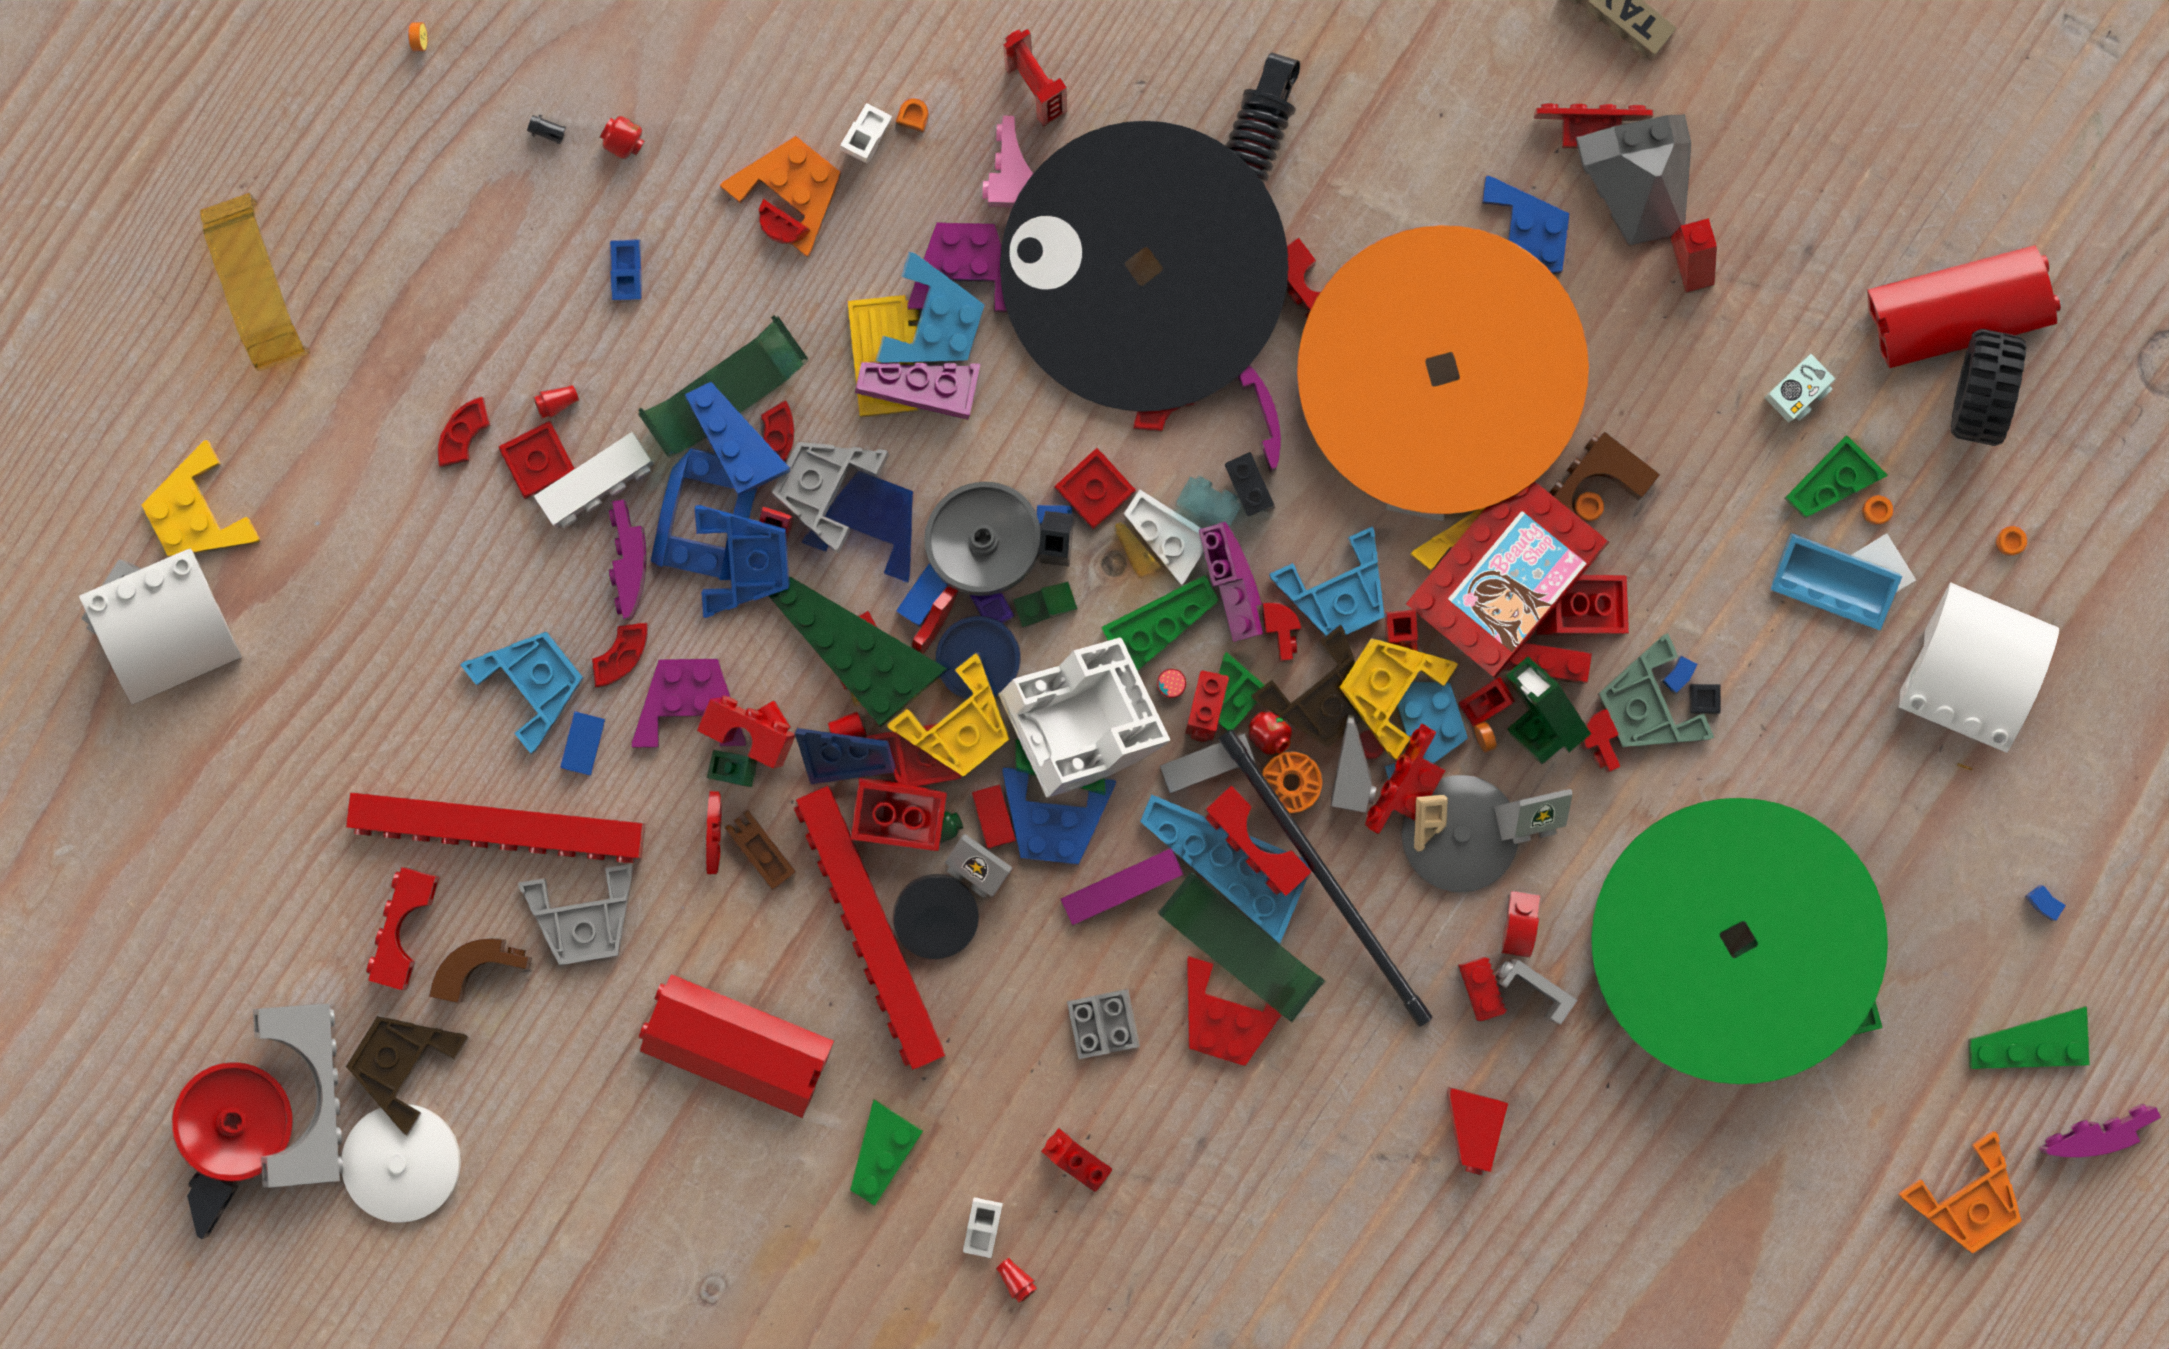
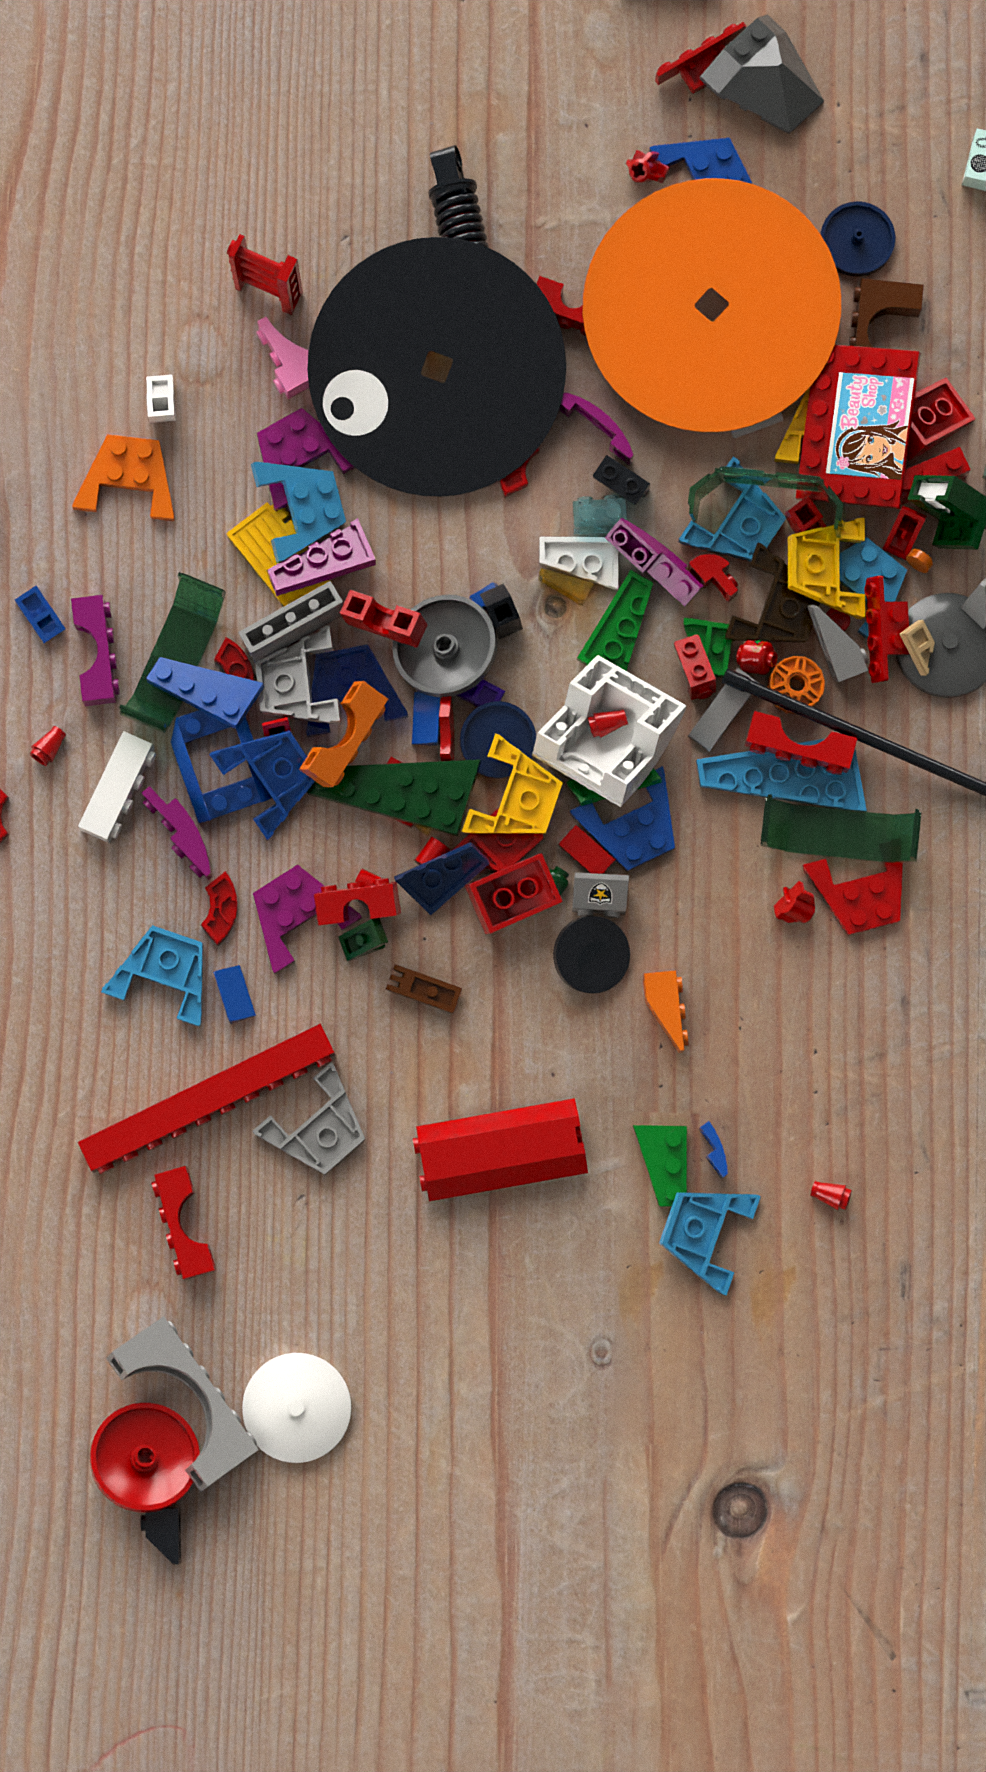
camera: 35 degrees left, 5 degrees down
(388, 1058) = (236, 1330): dark brown wing -> none
(457, 967) = (248, 1216): reddish brown arch -> none
(536, 459) = (61, 800): red tile -> none
(640, 370) = (98, 682): none -> magenta arch
(713, 832) = (380, 997): red tile -> none
(779, 225) = (138, 508): red tile -> none
(855, 426) = (292, 622): none -> light grey brick
(867, 551) = (362, 708): none -> orange arch
(869, 1231) = (695, 1227): none -> dark azure wing
(870, 927) = (547, 995): red brick -> none
(913, 115) = (187, 365): orange tile -> none
(932, 1177) = (717, 1157): none -> blue slope
(939, 478) = (397, 624): none -> red arch
(975, 1000) = (662, 999): none -> orange slope
(982, 1227) = (780, 1168): white brick -> none
(1045, 604) = (522, 668): dark green slope -> none
(1076, 1160) = (818, 1072): red bracket -> none
(1087, 708) = (606, 722): none -> red cone
(1095, 488) = (504, 558): red tile -> none
(1103, 1024) = (771, 957): light grey slope -> none
(1121, 886) = (718, 843): magenta slope -> none
(1156, 989) = (795, 905): none -> red piece
(1171, 683) = (657, 668): coral tile -> none
(1310, 542) = (760, 478): none -> clear green windscreen
(1469, 194) = (647, 167): none -> red piece
(1589, 506) = (885, 339): orange tile -> none
(1629, 388) = (859, 238): none -> dark blue piece
(1695, 254) = (843, 107): red slope -> none

